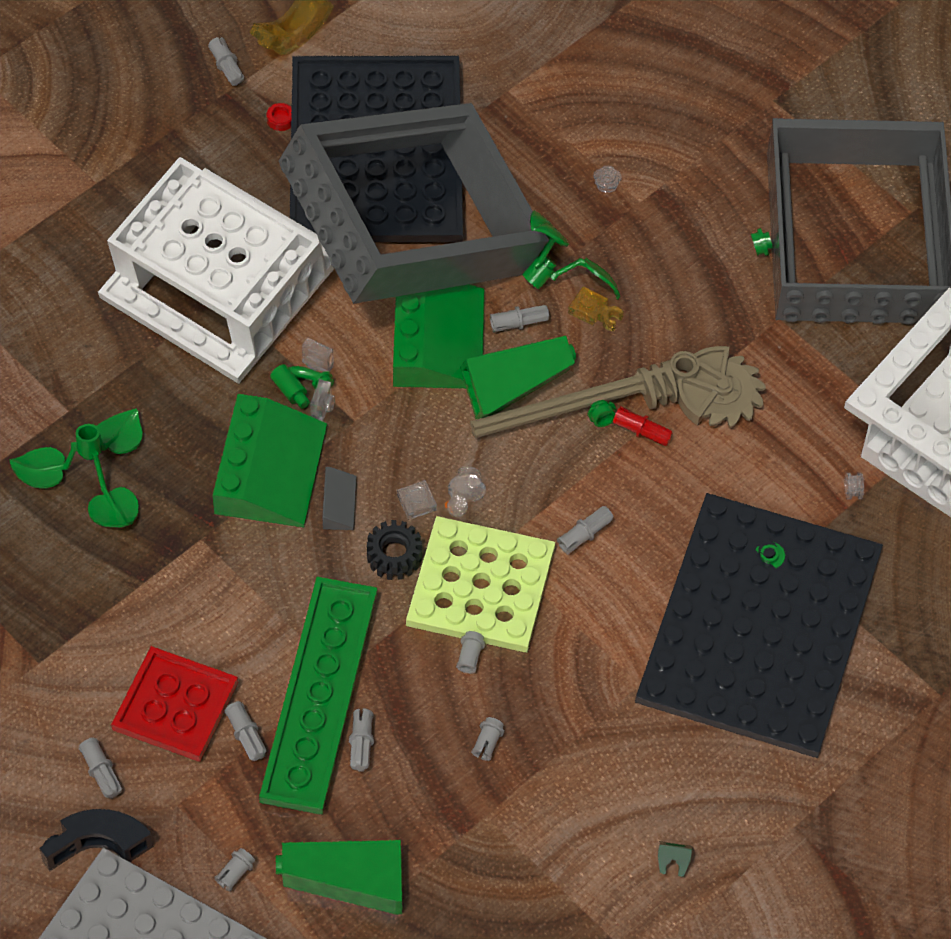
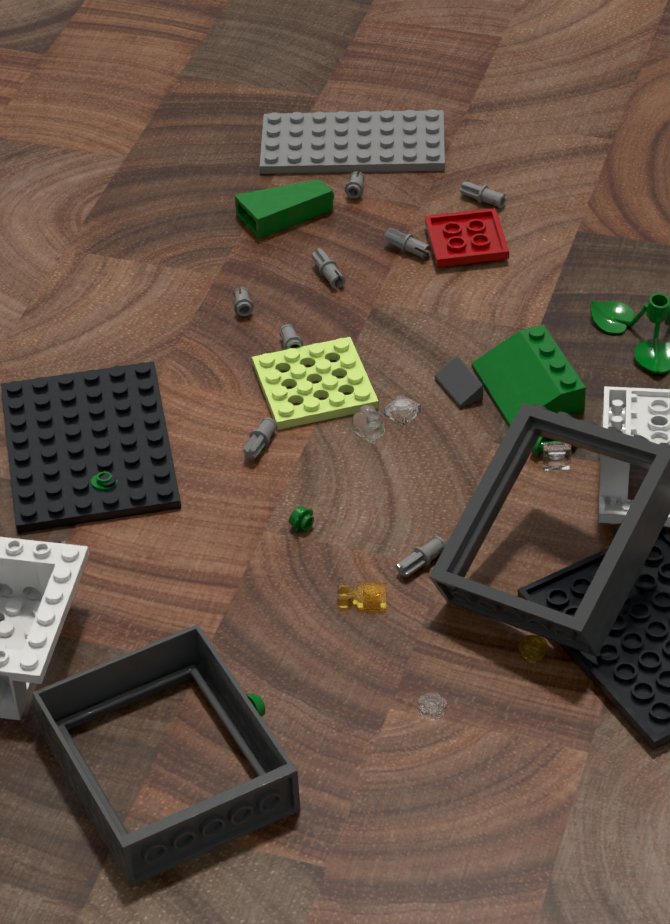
camera: 155 degrees right, 15 degrees down
(97, 830) = (450, 167): black arch -> none
(318, 696) = (377, 280): green plate -> none
(394, 565) = (392, 379): black tyre -> none
(436, 335) = (513, 531): green slope -> none
(513, 373) = (389, 503): green slope -> none
(543, 267) = (428, 550): green plant -> none
(642, 426) = (261, 523): red axle -> none
(672, 851) = (73, 293): dark green tile -> none
(711, 389) = (236, 572): dark tan piece -> none

